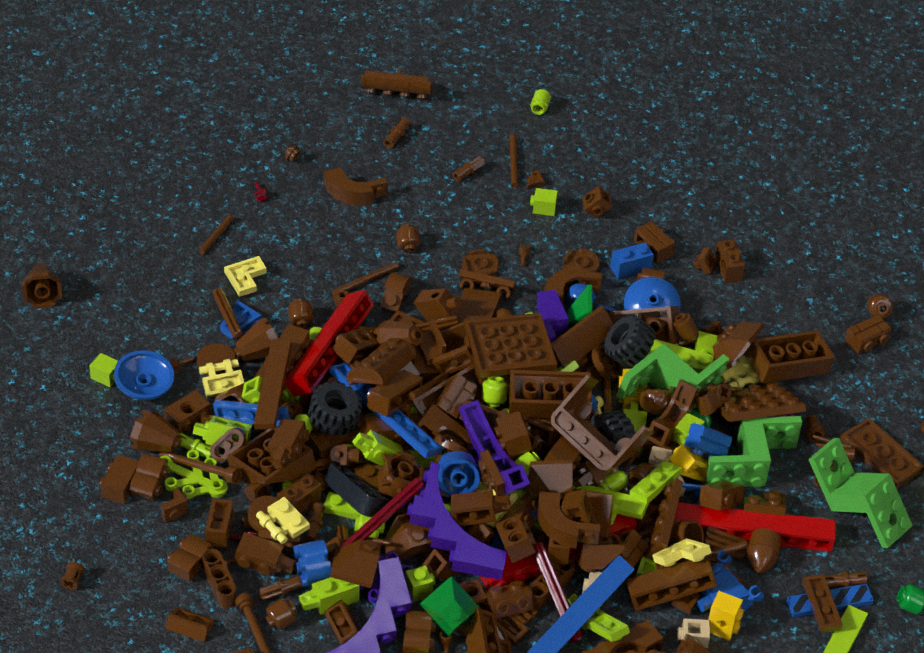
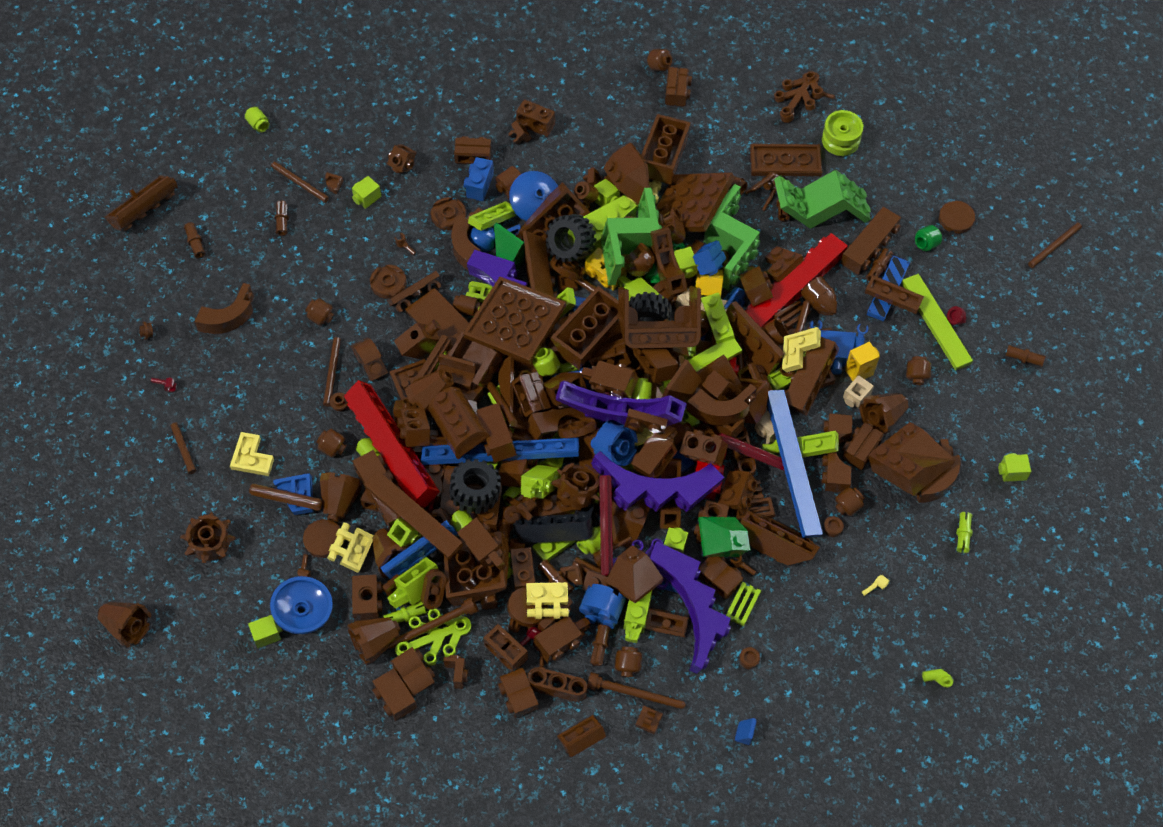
camera: 50 degrees left, 15 degrees up
(72, 575) = (466, 796): reddish brown bush -> none
(151, 290) = (207, 538): none -> reddish brown brick
(329, 531) = (573, 574): none -> reddish brown tile
(602, 286) = (492, 215): none -> lime plate
(859, 556) = (871, 240): none -> reddish brown brick

